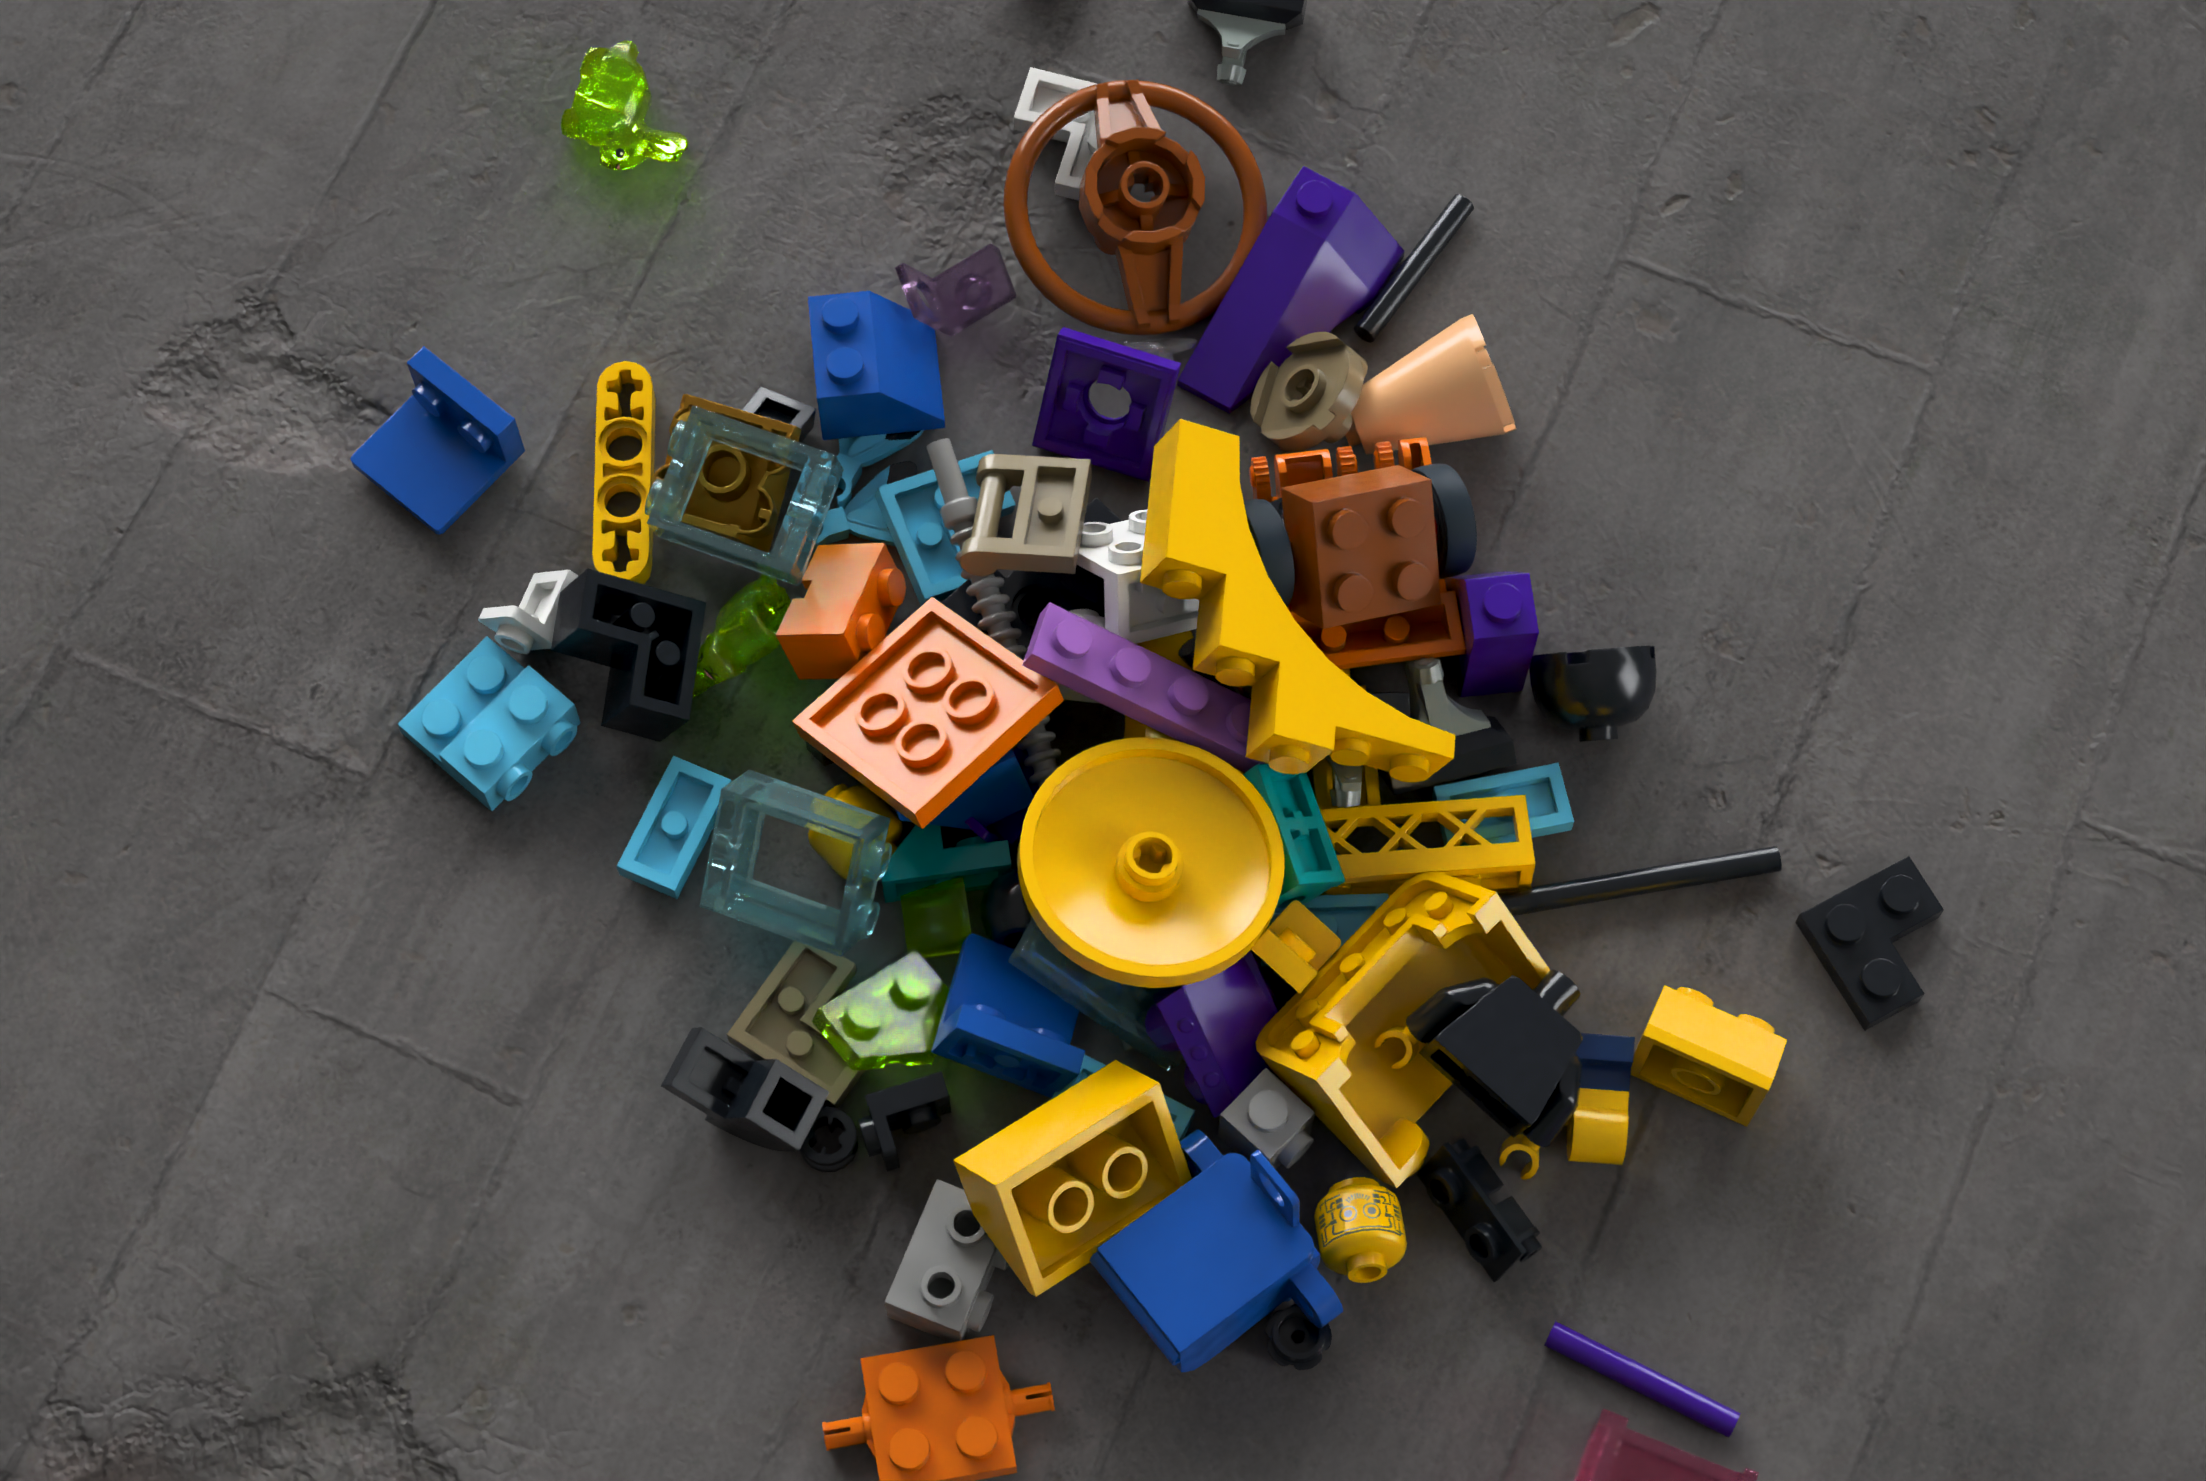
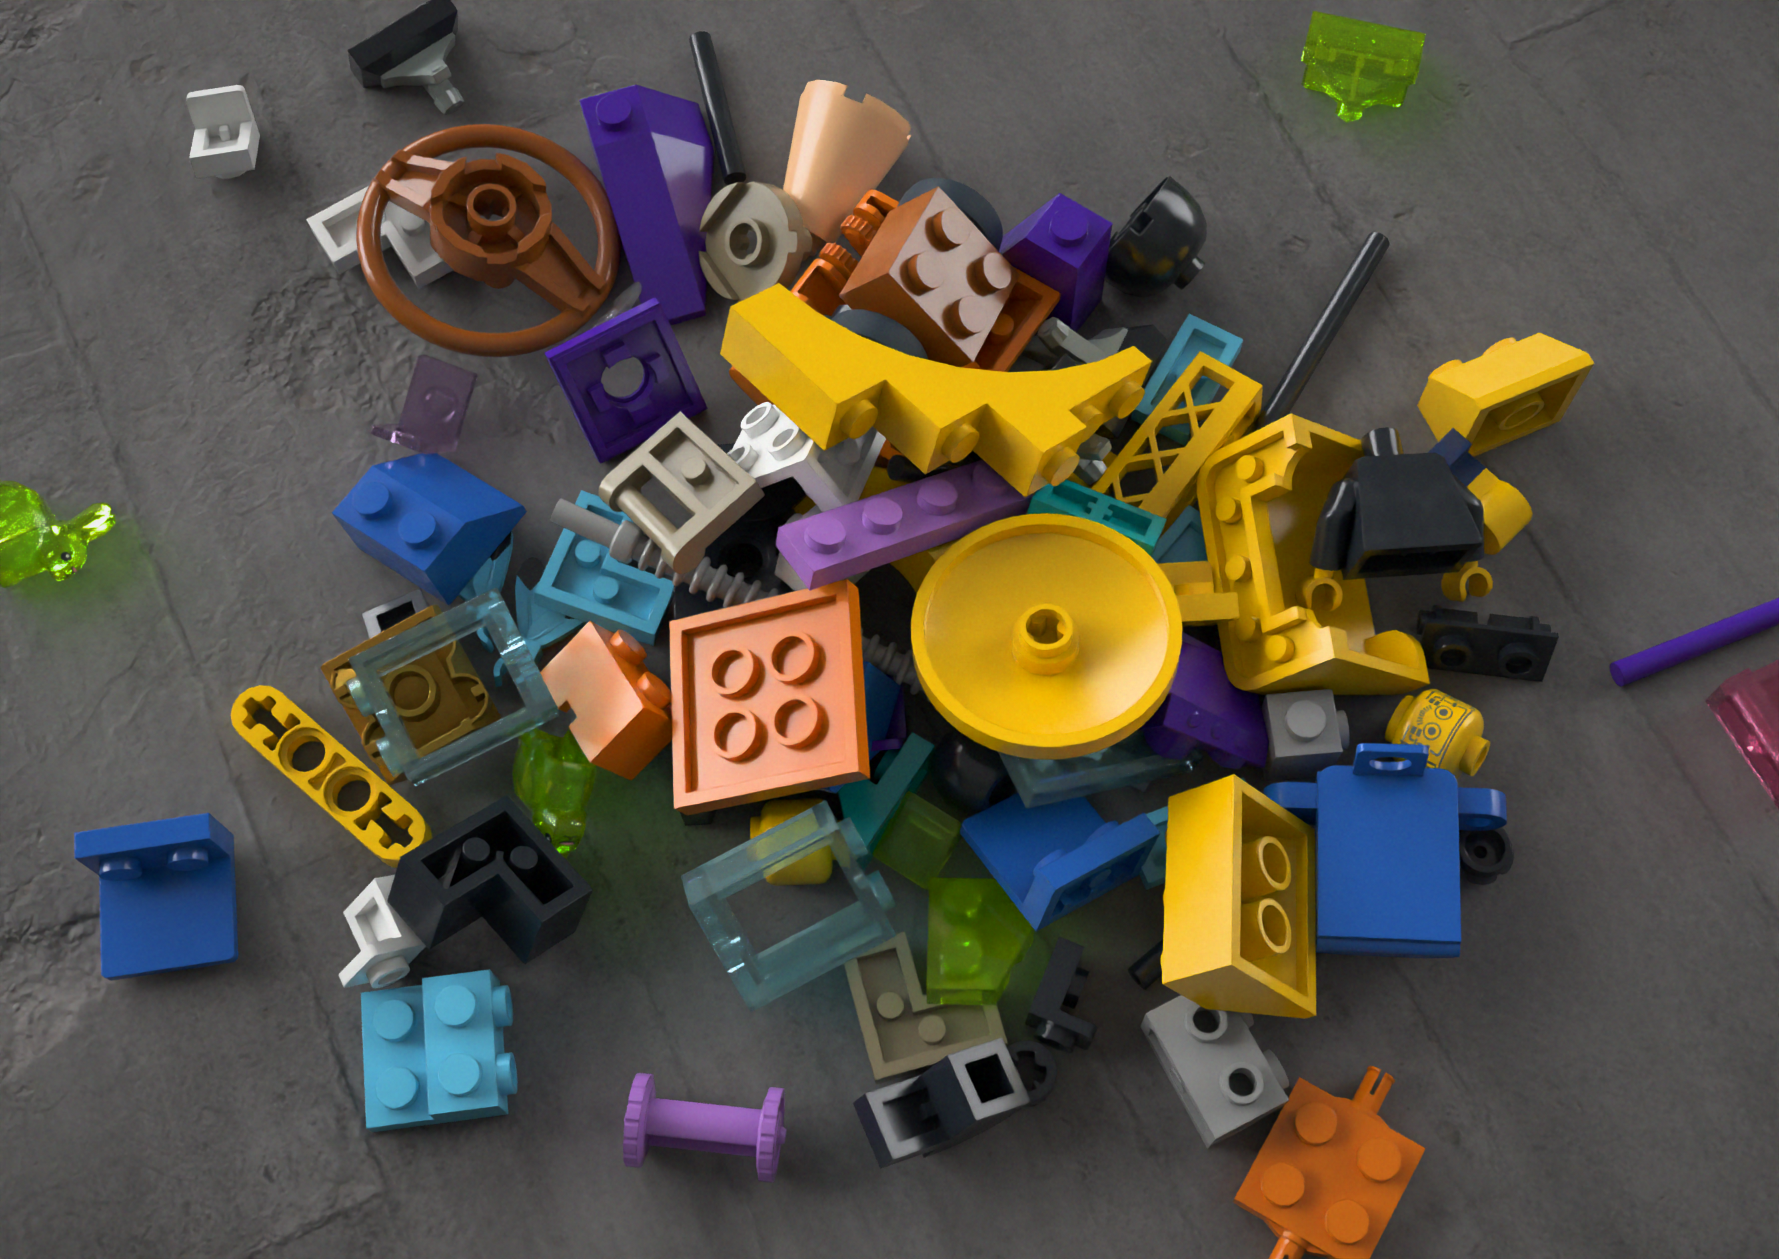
camera: 45 degrees left, 0 degrees up
(618, 986) = (703, 1127): none -> medium lavender hose
(673, 828) = (661, 978): medium azure plate -> none
(1856, 935) = (1484, 244): black plate -> none
(1933, 714) = (1360, 62): none -> clear neon green slope

